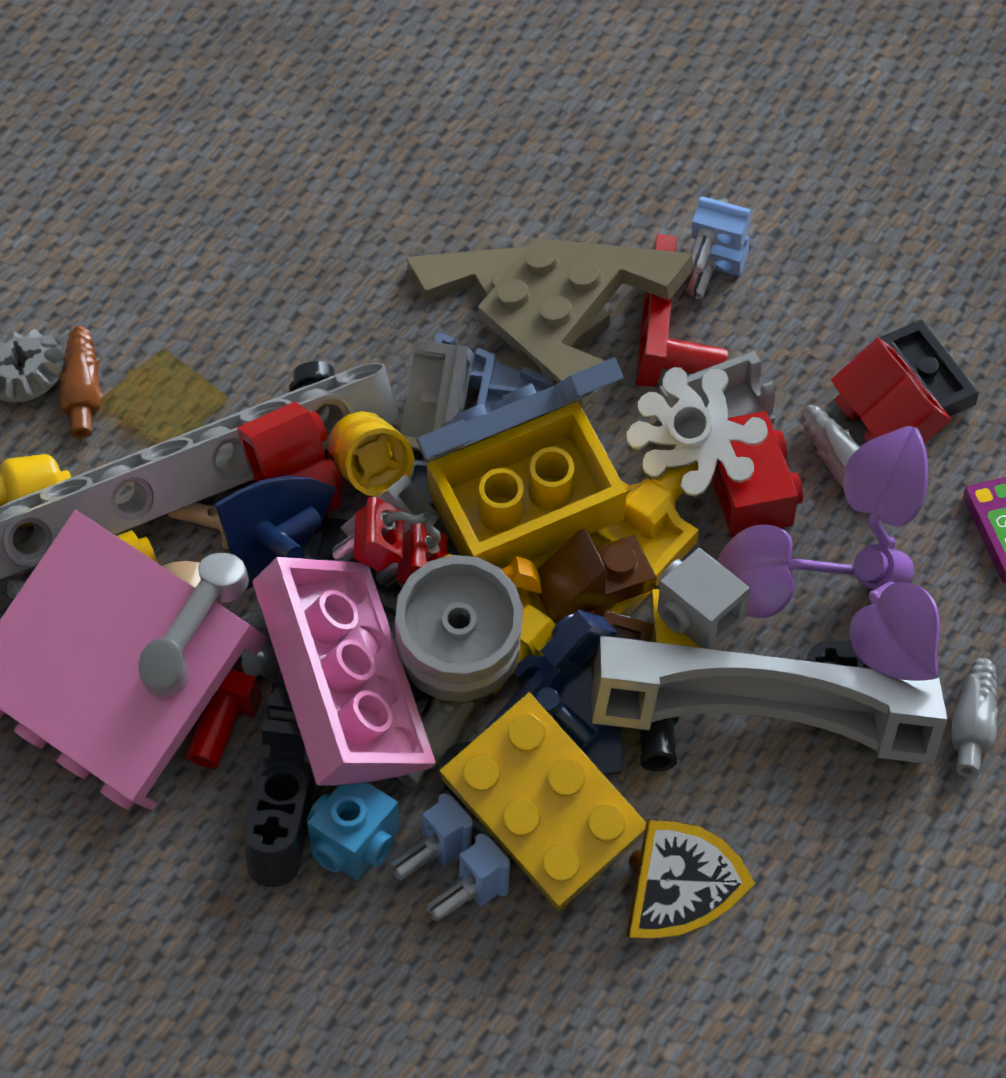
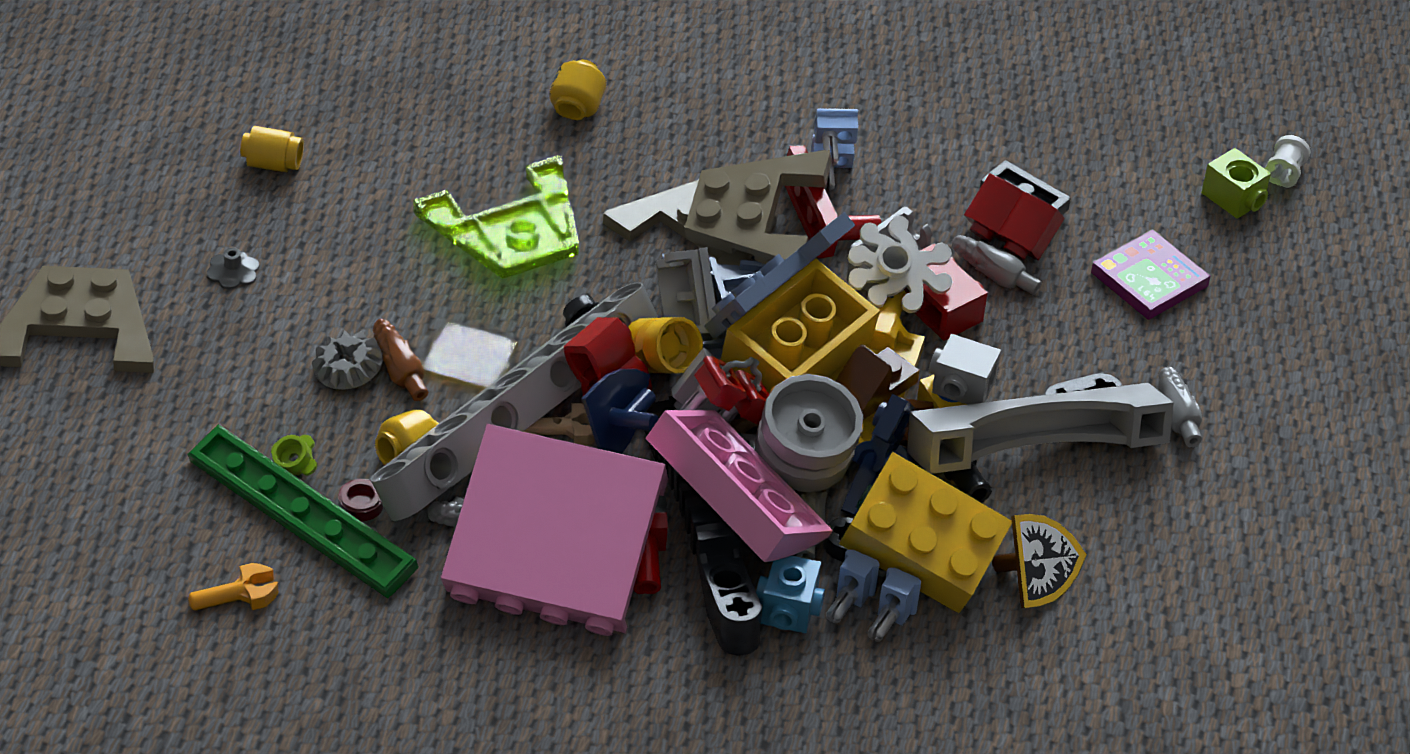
camera: 25 degrees left, 10 degrees down
(79, 80) = (272, 149): none -> yellow brick
(162, 661) = (614, 504): light grey bar -> none
(299, 258) = (513, 234): none -> clear neon green wing
(458, 93) = (577, 89): none -> yellow head
(903, 623) = (1112, 349): medium lavender plant -> none

